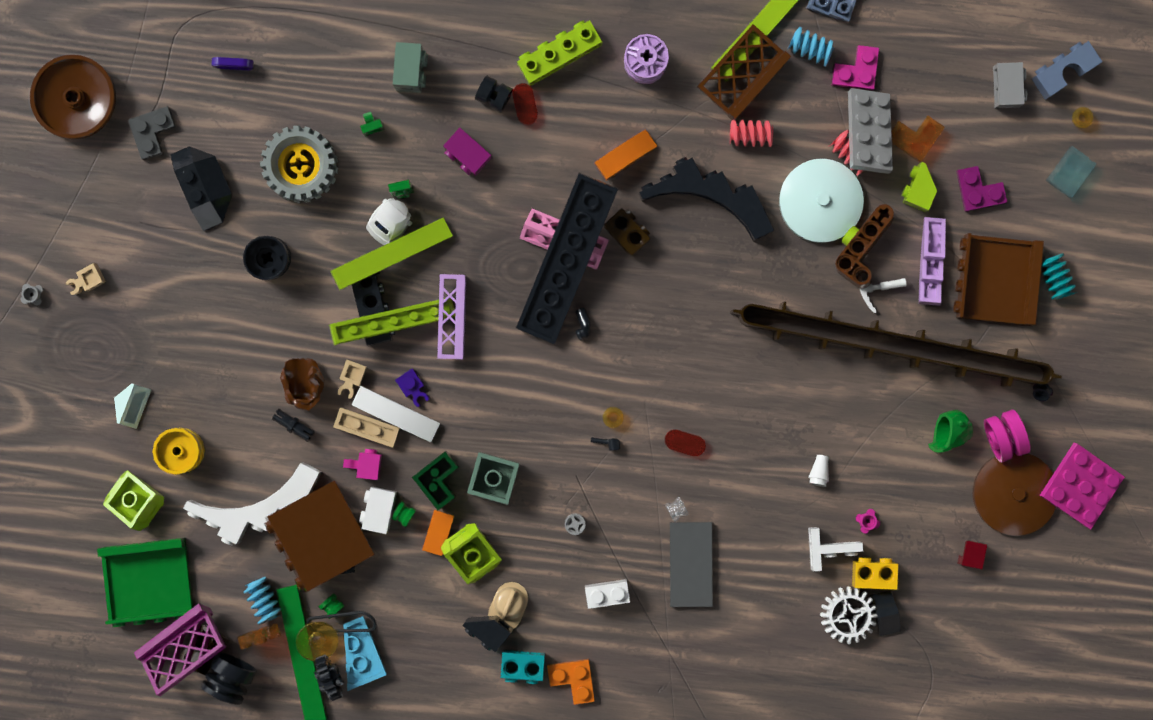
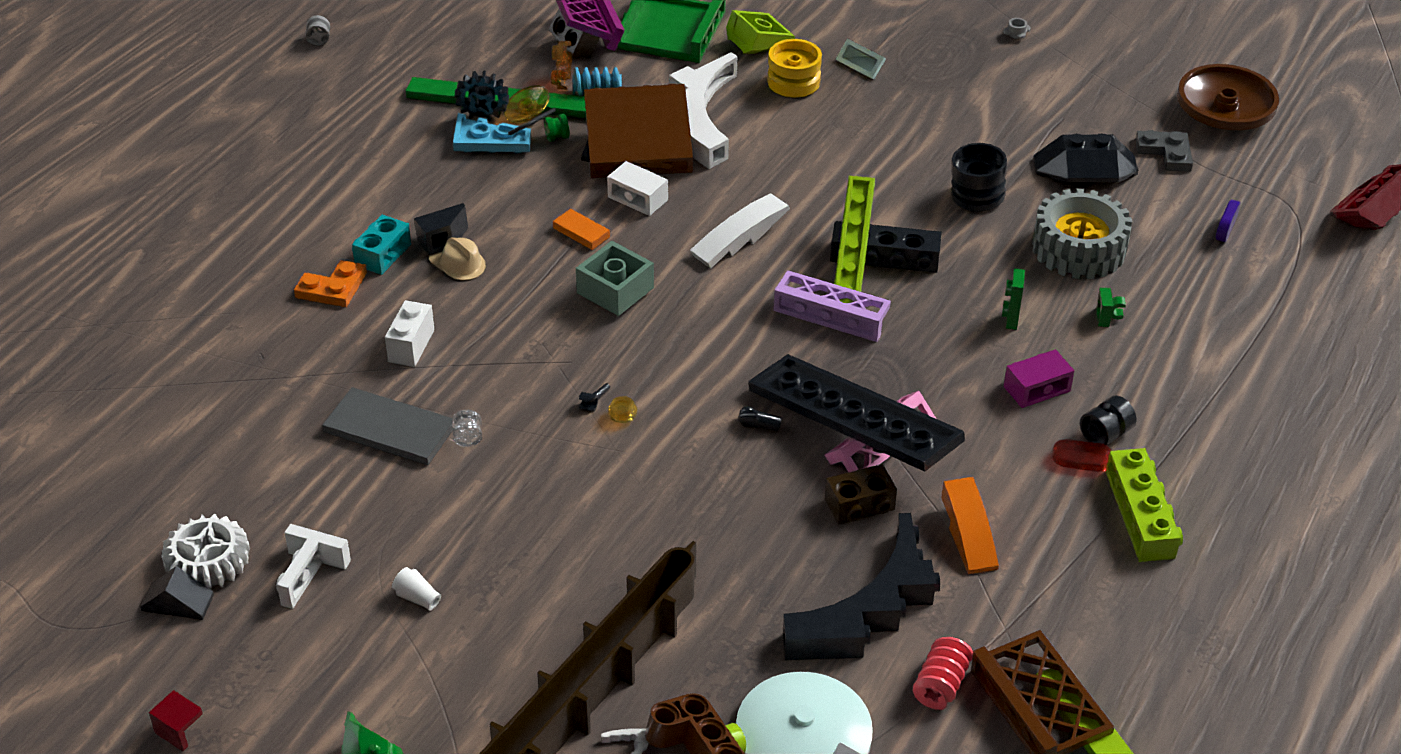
camera: 110 degrees right, 45 degrees down
(88, 278) = (1015, 64): tan plate -> none
(230, 675) = (532, 34): black wheel -> none
(293, 425) = (774, 156): black pin -> none
(302, 383) = (818, 168): reddish brown hair -> none
(352, 375) = (805, 212): tan plate -> none
(366, 427) = (749, 193): tan plate -> none
(367, 465) = (694, 193): dark pink brick -> none
(389, 221) = (979, 289): white helmet -> none
(391, 253) = (936, 272): lime tile -> none
(403, 514) = (620, 204): green wheel -> none
(408, 67) = (1171, 348): sand green brick -> none
(411, 384) = (765, 256): dark purple plate -> none
(432, 478) = (643, 231): dark green brick -> none
(470, 553) = (538, 237): lime slope -> none
(575, 527) = (513, 335): light grey wheel -> none
(634, 63) = (1102, 583): lavender wheel -> none
(684, 442) = (546, 468): clear red tile -> none
(865, 527) = (312, 620): dark pink plate -> none
(874, 579) = (235, 598): yellow brick -> none

